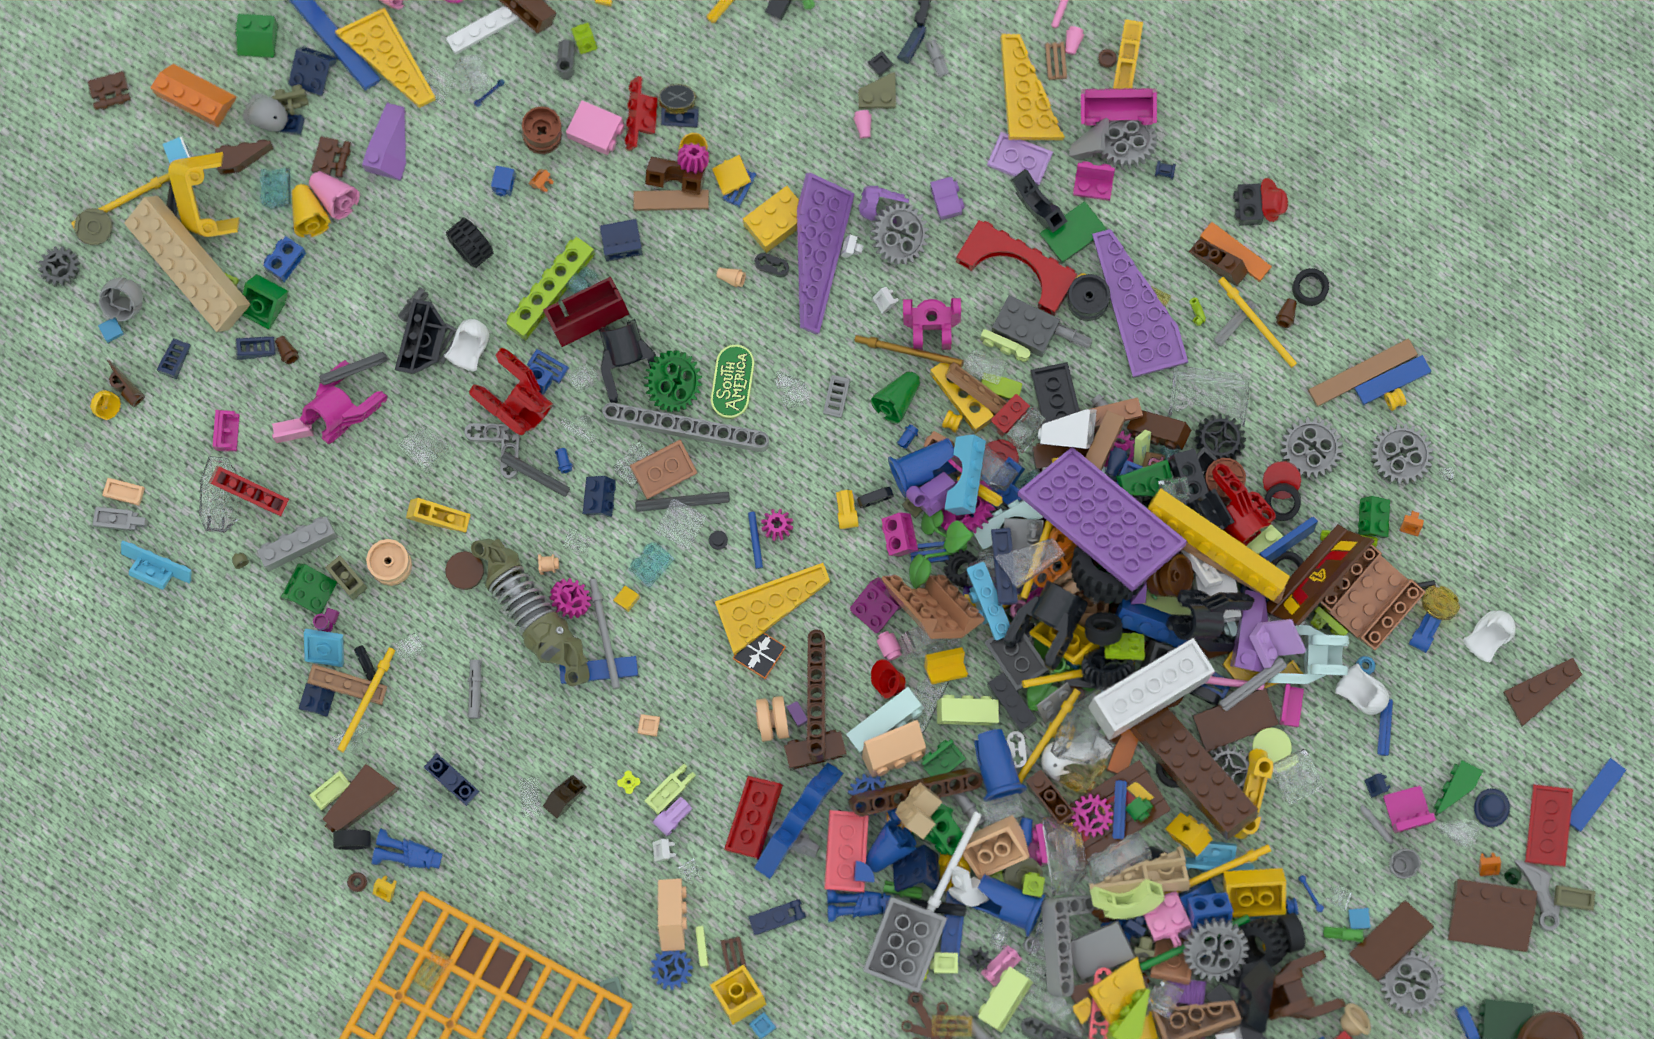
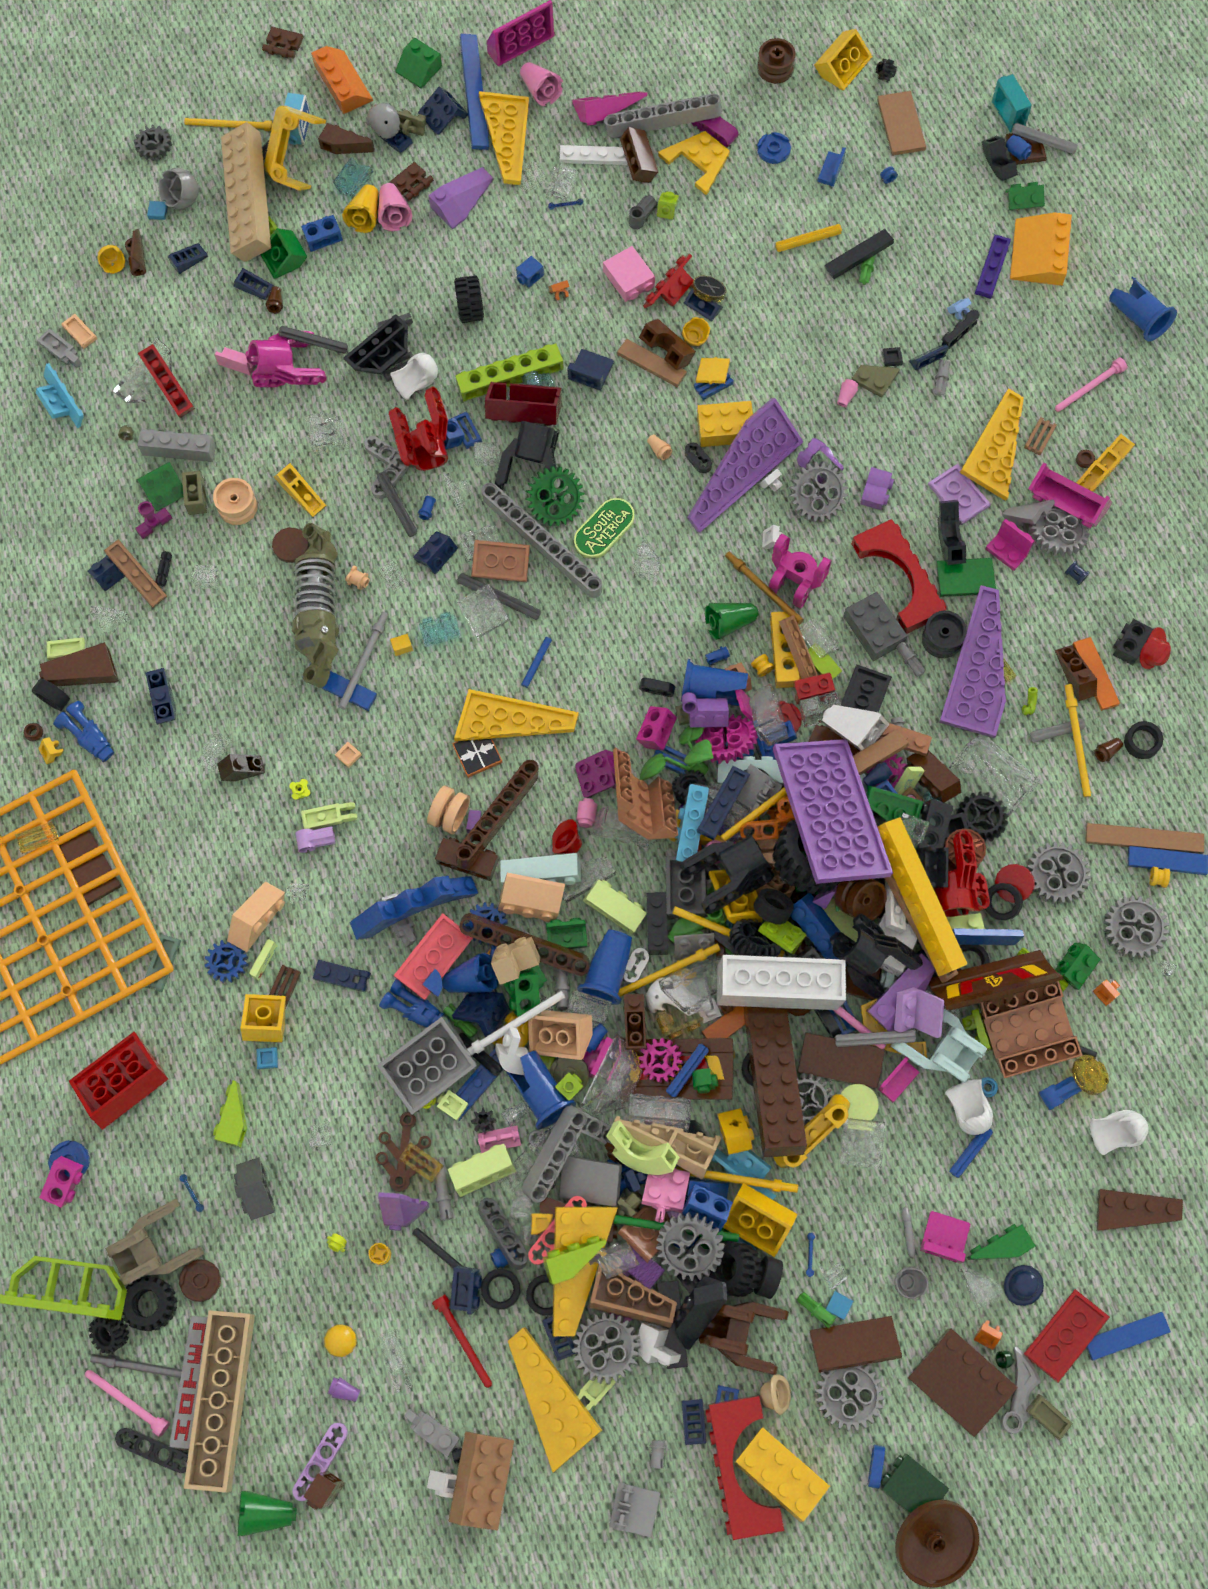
camera: 30 degrees right, 5 degrees down
(93, 226) = (199, 129): olive tile -> none
(225, 430) = (186, 331): dark pink hinge -> none
(323, 647) = (138, 534): medium azure tile -> none
(383, 667) = (173, 577): yellow bar -> none
(474, 689) = (229, 643): light grey pin -> none
(541, 120) = (585, 250): copper wheel -> none
(570, 598) = (358, 623): dark pink gear -> none
(661, 850) = (286, 861): white tile -> none
(693, 158) = (689, 336): dark pink gear -> none
(718, 540) = (506, 643): black plate -> none
(753, 817) = (378, 880): red tile -> none
(769, 526) = (561, 666): dark pink gear -> none
(840, 380) = (676, 585): light grey slope -> none
(847, 514) = (625, 685): yellow piece -> none
(945, 665) = (622, 857): yellow panel -> none
(963, 496) = (728, 724): medium azure arch -> none
(988, 495) = (746, 730): yellow axle -> none
(1006, 346) = (848, 632): yellowish green hinge -> none
(1030, 561) = (747, 810): clear wing -> none
(1073, 39) = (1066, 427): bright pink cone -> none
(1291, 906) = (785, 1254): blue bush -> none
(1376, 785) = (930, 1197): dark blue tile -> none

